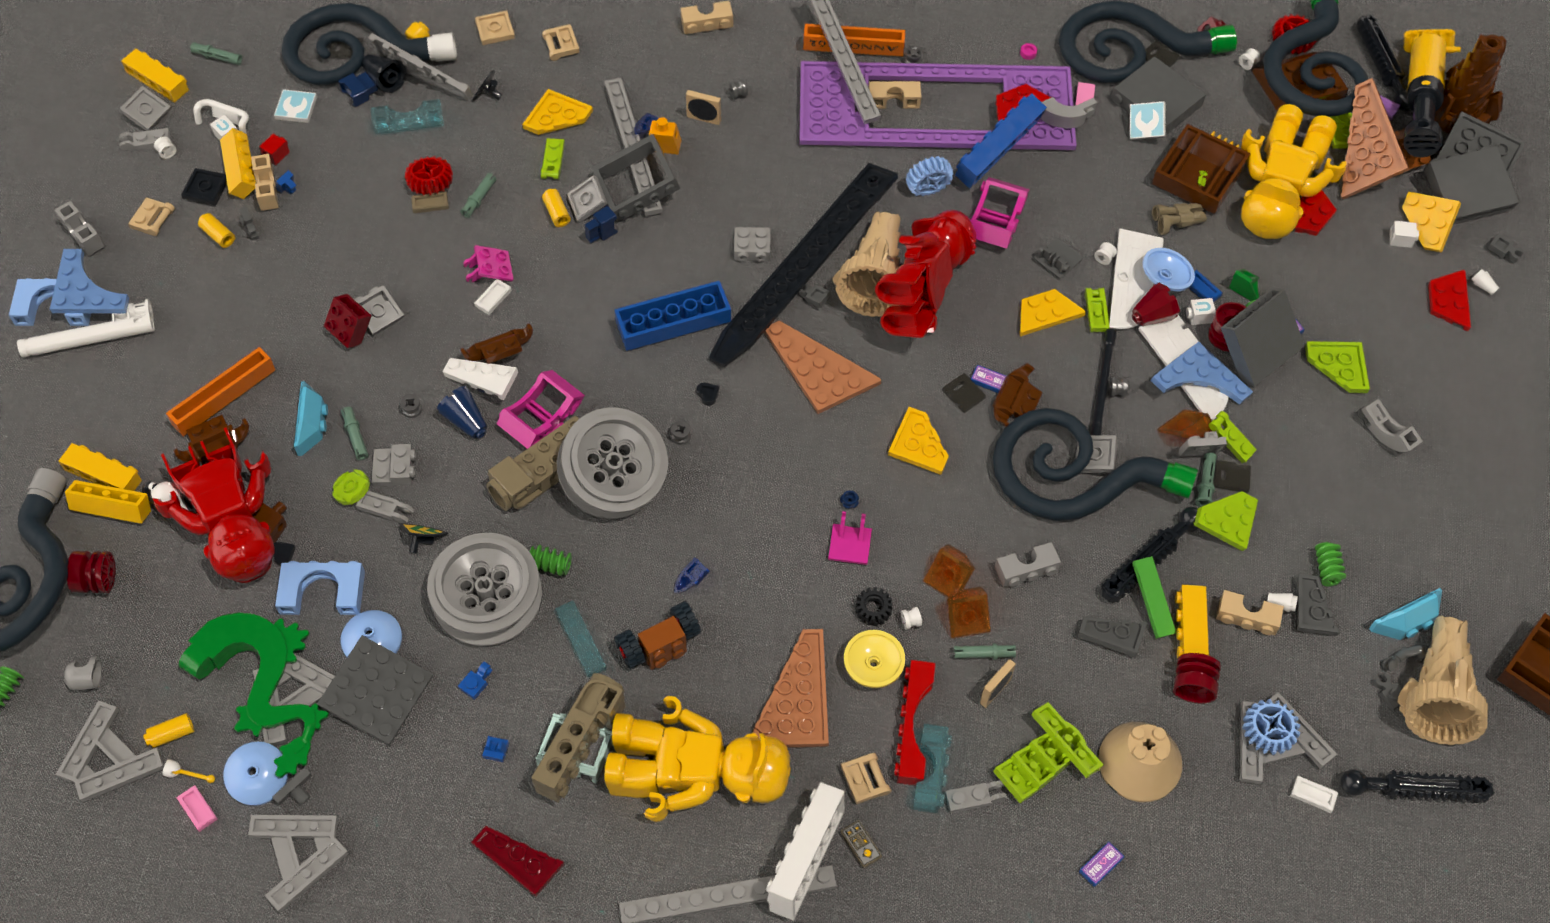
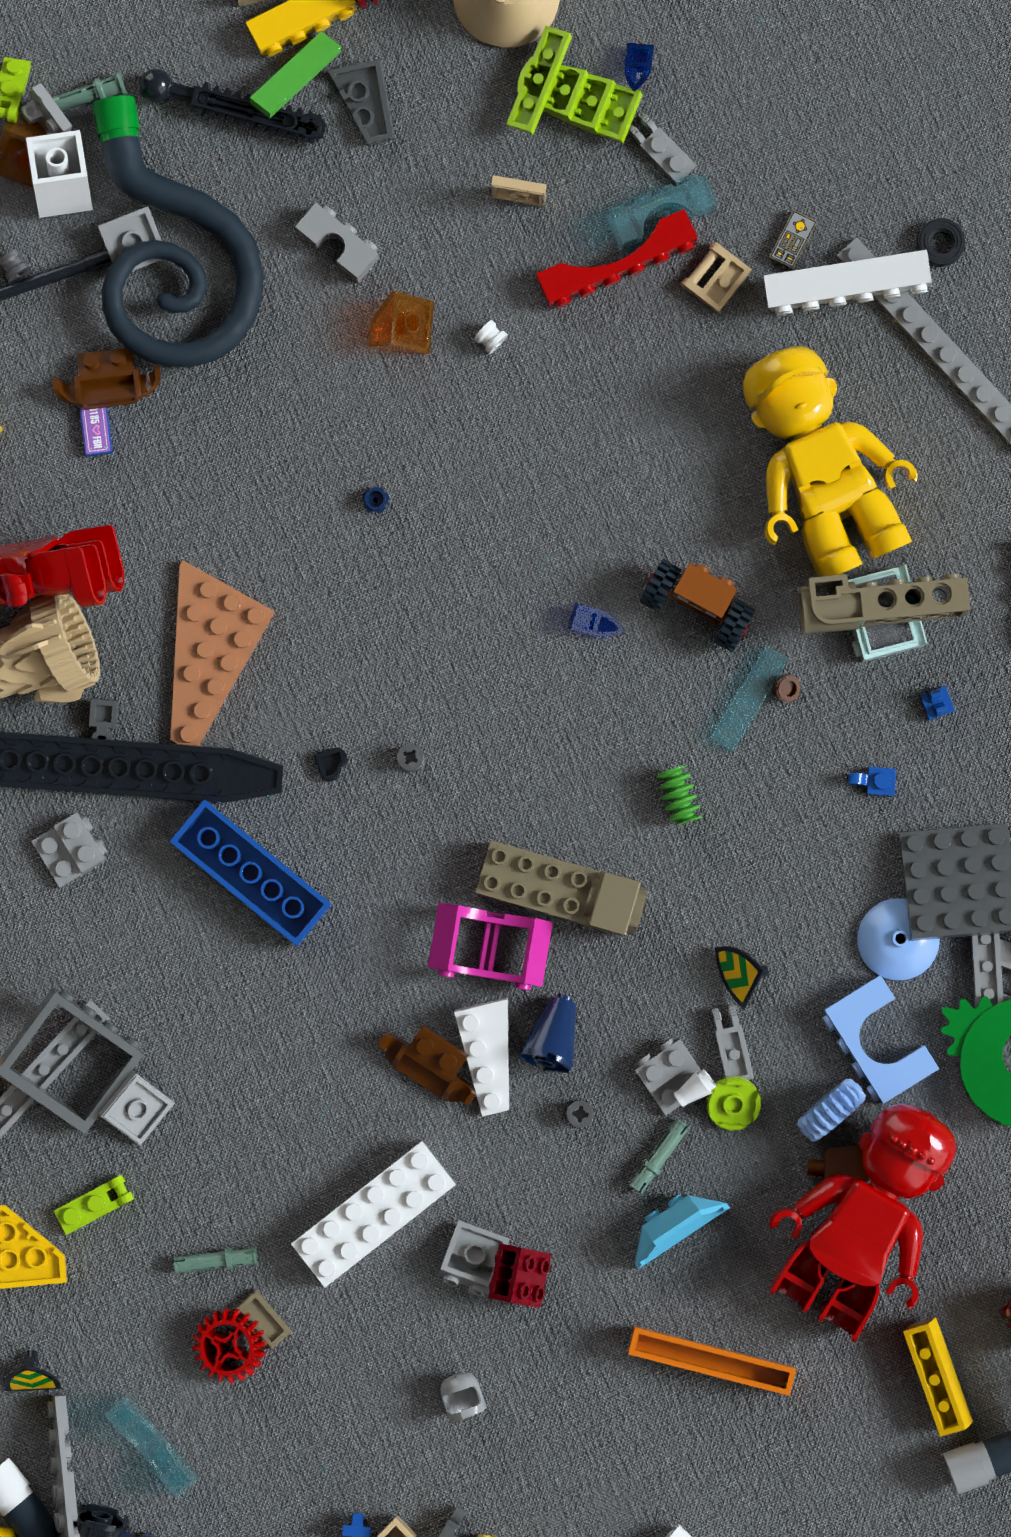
camera: 120 degrees left, 25 degrees up
(98, 468) = (903, 1425): yellow brick -> none
(162, 492) = (890, 1316): white hair -> none
(213, 436) = (777, 1323): reddish brown plate -> none
(283, 552) = (861, 1121): black tile -> none
(301, 531) = (831, 1110): none -> light blue gear
(313, 266) = (462, 1396): none -> light grey helmet
(374, 468) = (696, 1087): none -> white cone
(440, 277) = (373, 1214): none -> white brick
(459, 568) = (813, 823): light grey wheel -> none
(491, 264) = (313, 1161): dark pink plate -> none
(492, 296) = (357, 1129): white tile -> none
(556, 207) = (172, 1142): yellow brick -> none
(570, 662) = (786, 688): none -> reddish brown tile
(601, 226) = (169, 1056): dark blue piece -> none
(618, 430) = (526, 751): light grey wheel -> none
(799, 702) = (674, 403): nougat wing -> none
(850, 543) = (434, 464): dark pink plate -> none
(873, 617) = (501, 372): black tyre -> none
(878, 648) = (576, 327): light yellow dish -> none
(919, 443) = (245, 462): yellow plate -> none
(967, 395) = (136, 444): clear smoke piece -> none
(968, 612) = (441, 275): clear orange slope -> none
(985, 651) = (479, 231): sand green pin -> none
(1043, 812) = (638, 64): none -> clear blue plate
(1162, 429) = (59, 173): none -> white slope
(1229, 519) = (129, 41): lime plate -> none
(1236, 476) = (56, 63): clear smoke piece -> none

